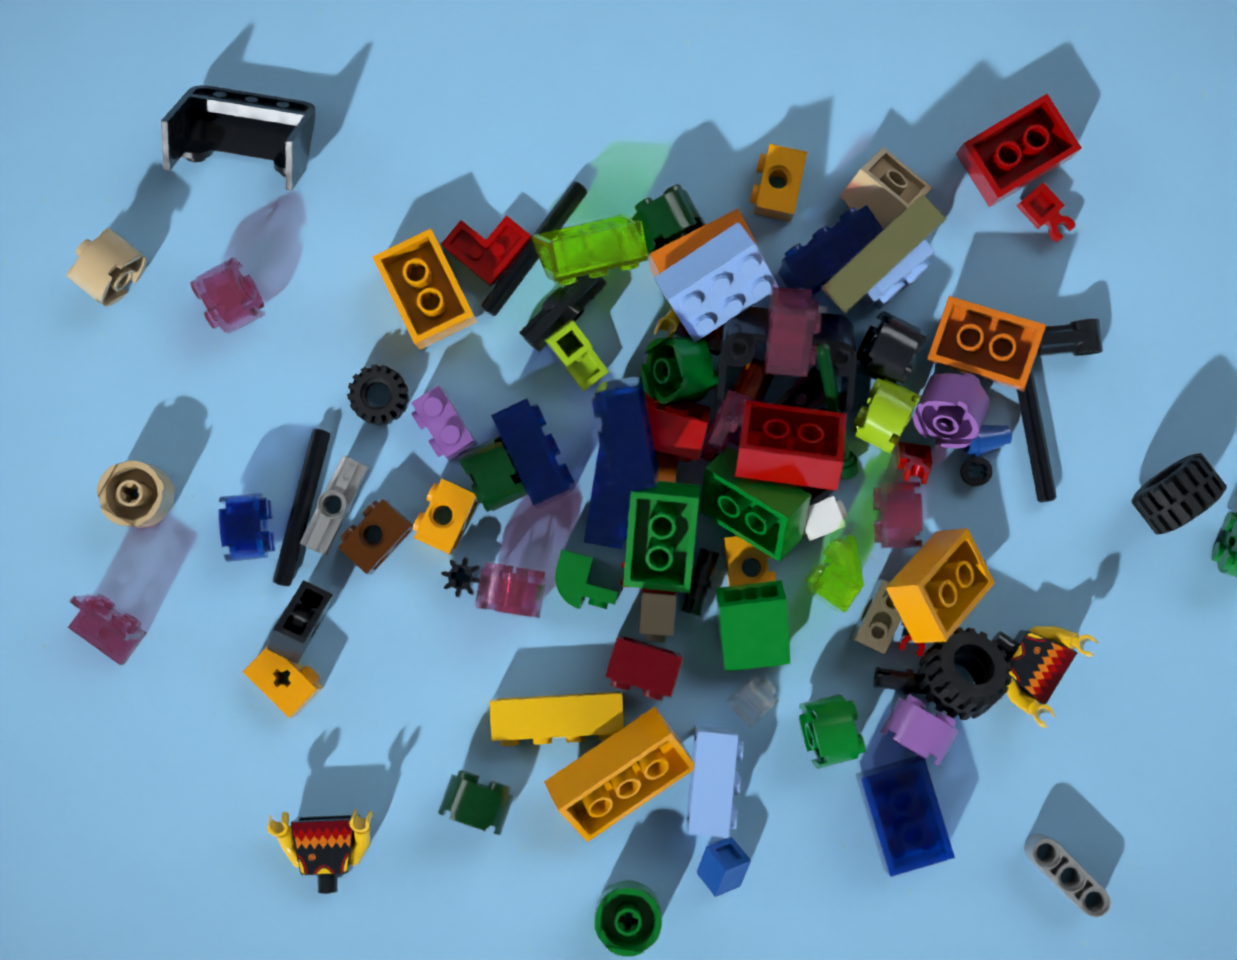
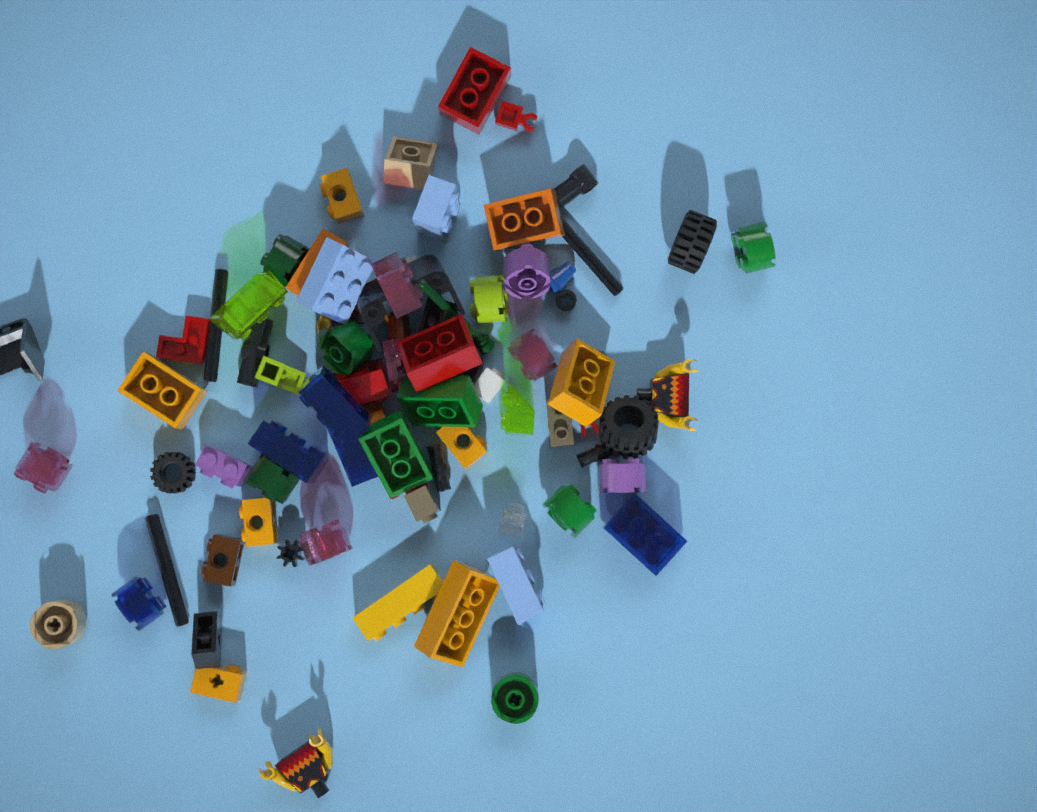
camera: 35 degrees left, 0 degrees up
(106, 628) = (89, 717): clear pink bracket -> none
(325, 525) = (186, 572): light grey piece -> none
(475, 802) = (381, 684): dark green brick -> none
(572, 579) = (360, 514): green brick -> none
(643, 667) = (431, 539): dark red brick -> none
(723, 866) = (555, 631): blue panel -> none
(753, 625) = (484, 475): green brick -> none
(829, 250) = (396, 220): clear blue brick -> none
(883, 253) = (424, 204): olive tile -> none
(889, 349) = (468, 258): black brick -> none
(914, 460) = (523, 316): red plate -> none
(1080, 883) = (774, 510): light grey beam -> none

